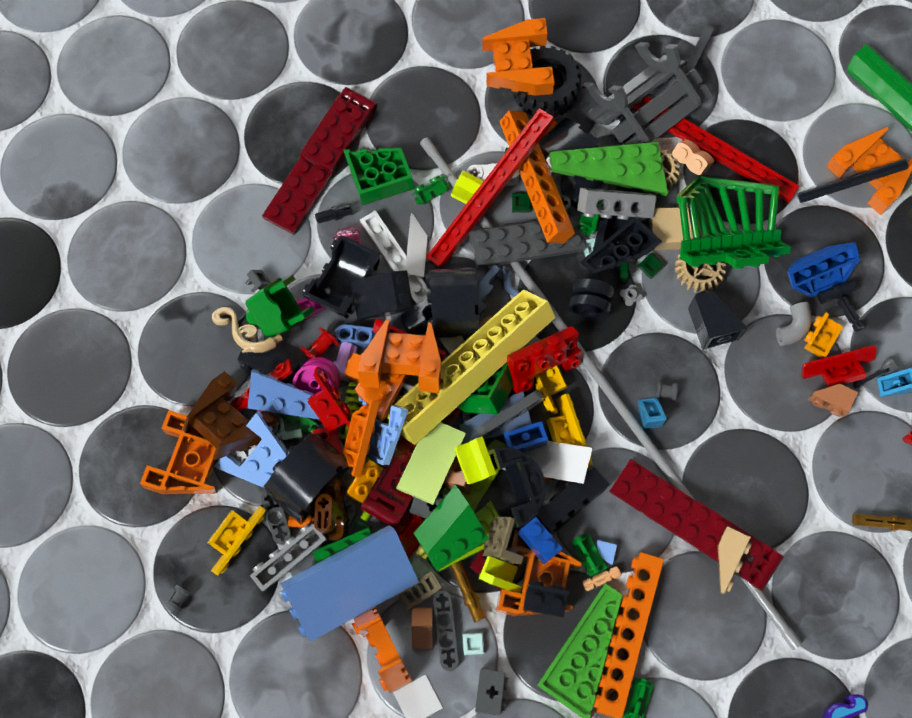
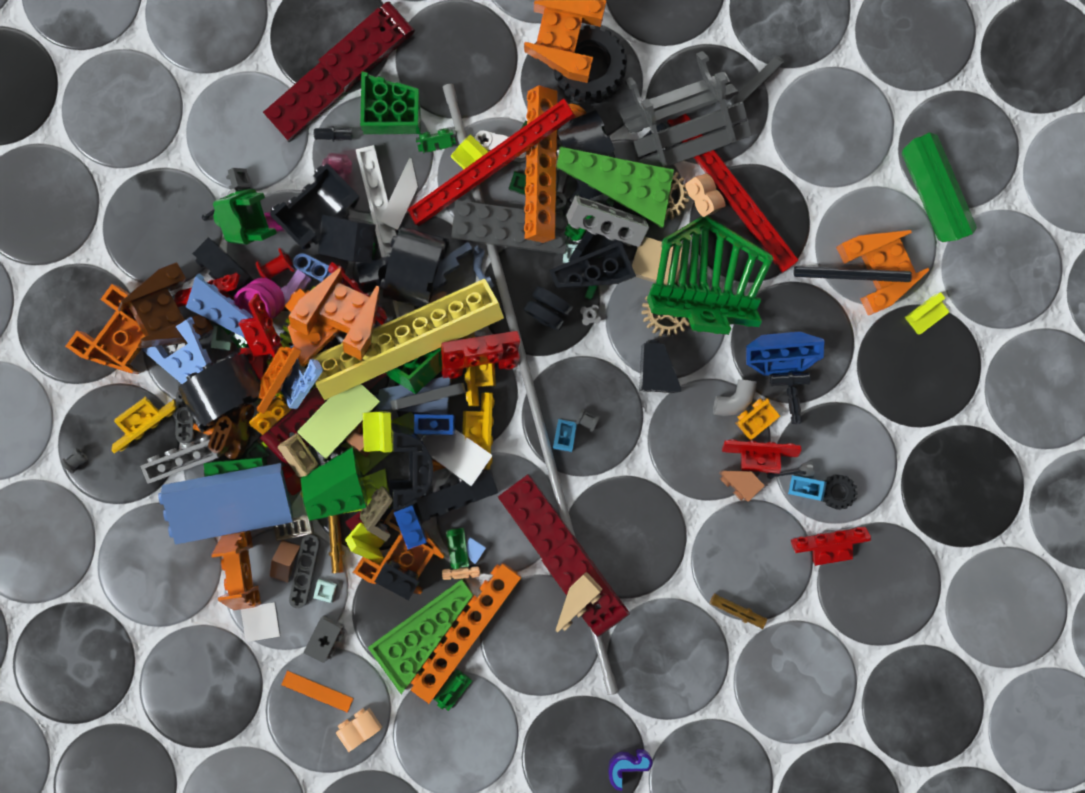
camera: 20 degrees right, 15 degrees up
(248, 330) = (211, 227): tan plant -> none
(404, 512) = (298, 455): none -> tan slope
(651, 265) = (622, 292): dark green tile -> none

